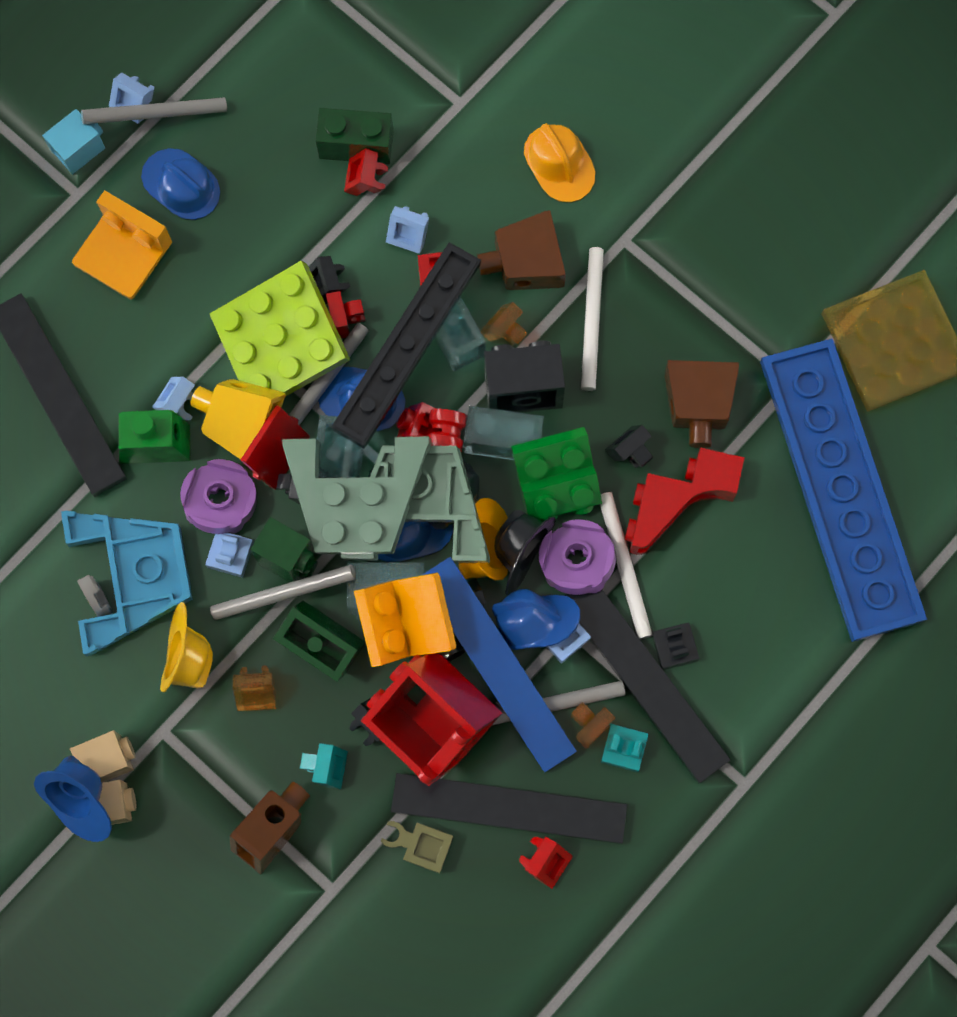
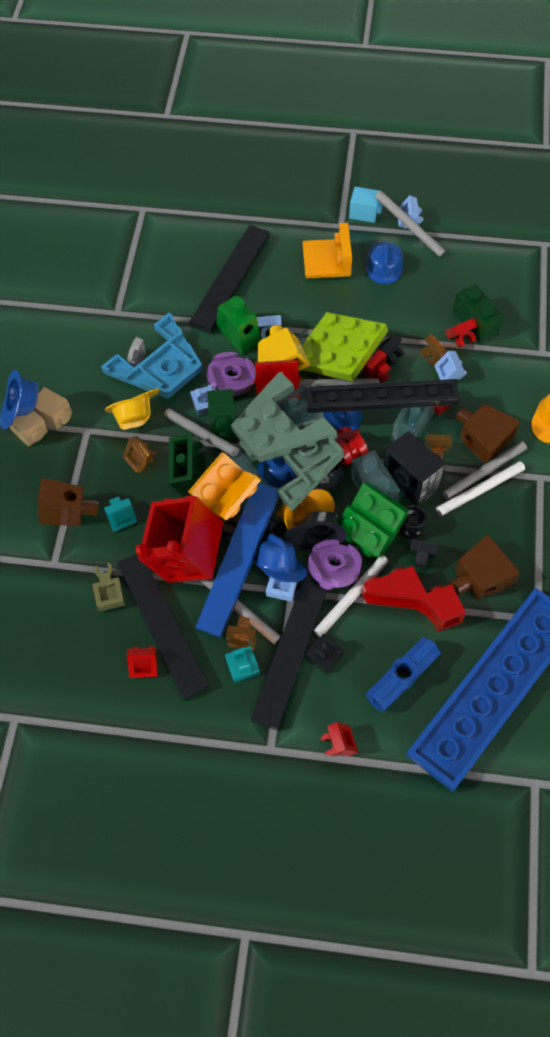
camera: 55 degrees right, 15 degrees down
(369, 222) = (436, 349): none -> clear orange tile
(572, 297) = (484, 470): none -> light grey bar
(592, 421) = (416, 516): none -> black wheel
(767, 601) = (392, 685): none -> blue piece
(792, 698) = (342, 740): none -> red tile

